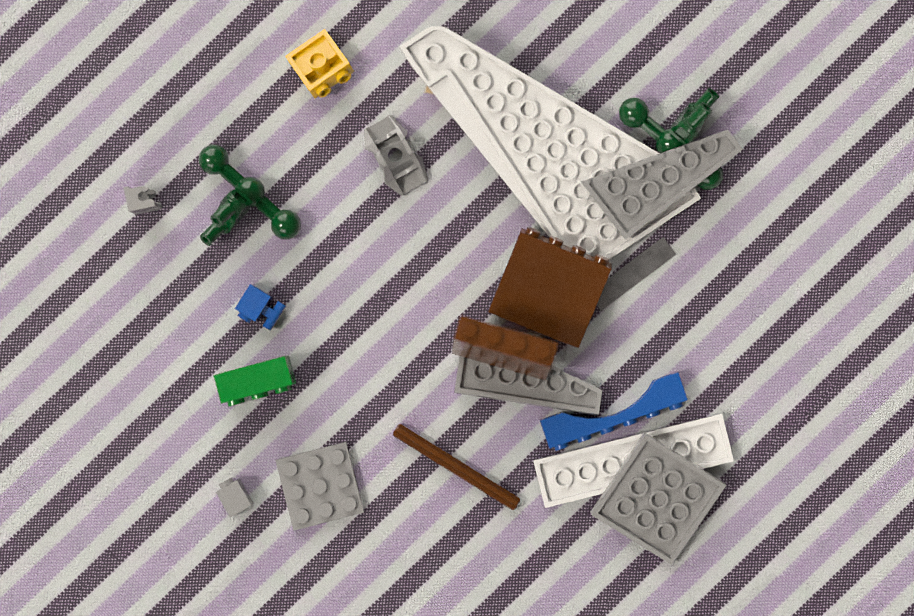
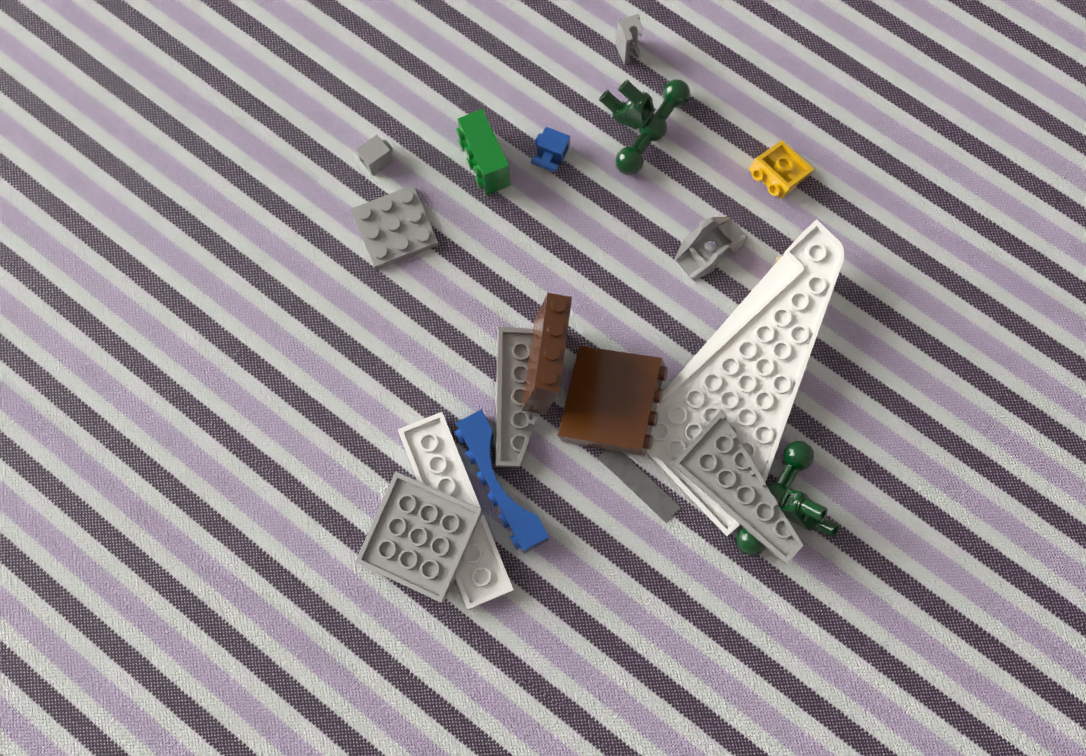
camera: 80 degrees right, 15 degrees down
(456, 467) = (426, 344): reddish brown axle -> none

